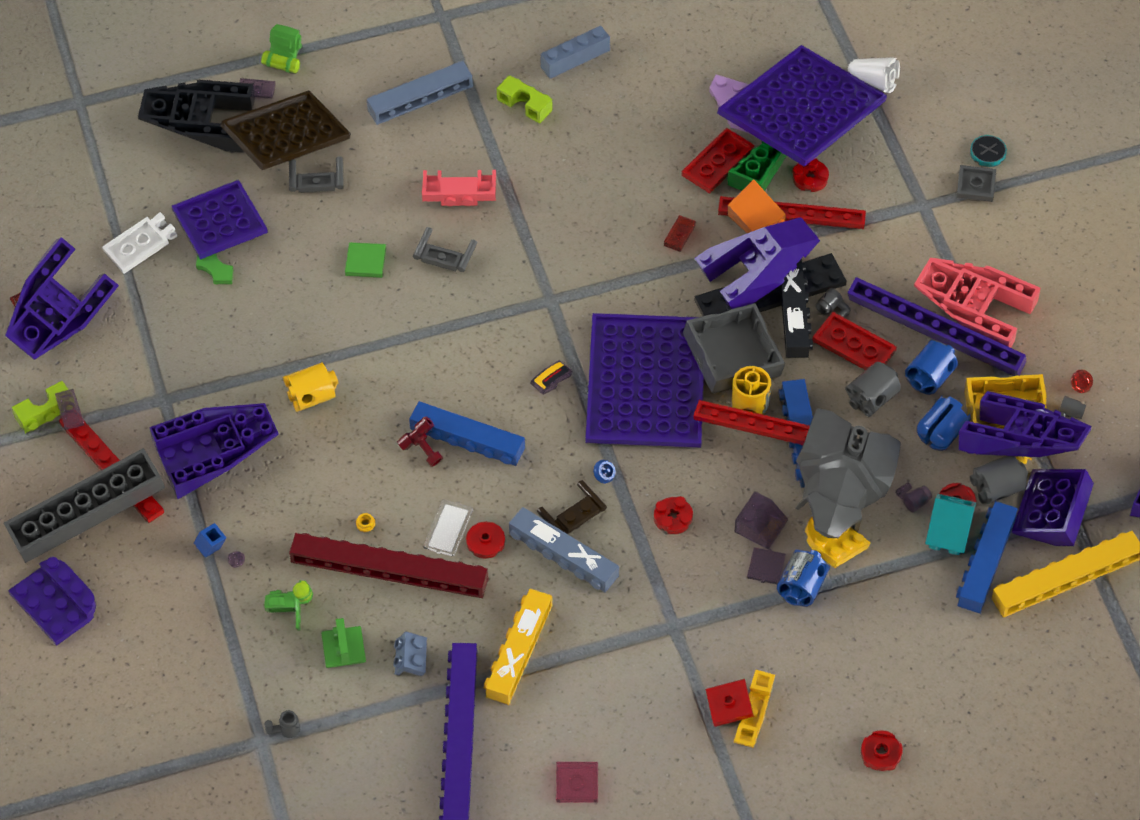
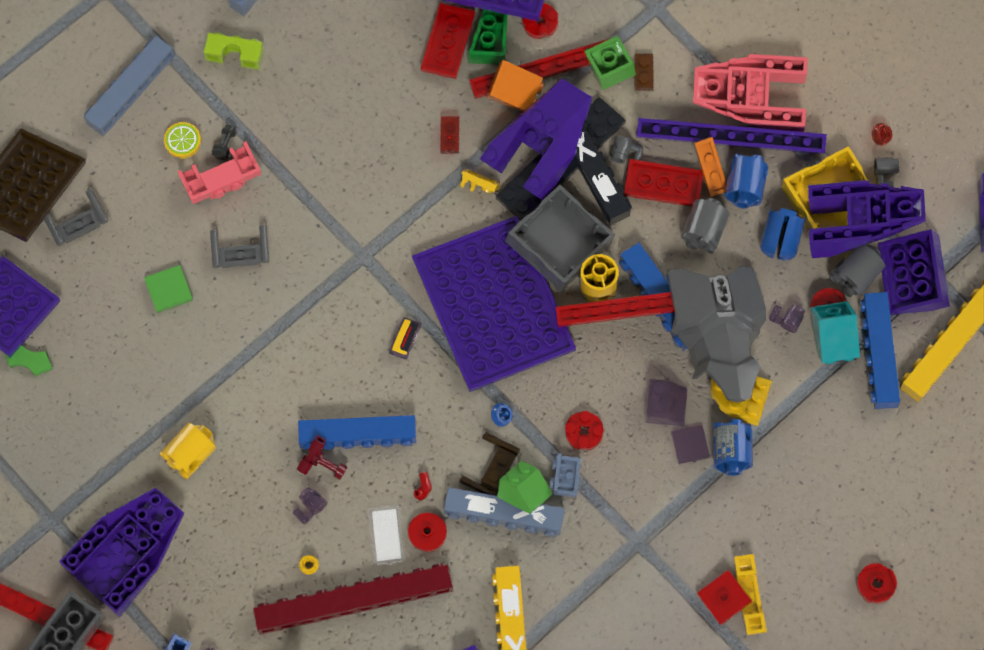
camera: 25 degrees left, 15 degrees up
(397, 474) = (313, 502): none -> clear purple piece
(442, 151) = (182, 140): none -> tile
(472, 171) = (221, 151): none -> pearl dark grey bar
(498, 506) = (425, 487): none -> red arm
(590, 532) = (524, 487): none -> bright green slope
(635, 542) = (566, 477): none -> sand blue bracket
(683, 276) = (487, 184): none -> yellow plate
(855, 228) = (610, 63): none -> bright green slope
(884, 250) = (644, 72): none -> reddish brown plate
(904, 342) = (710, 166): none -> orange plate

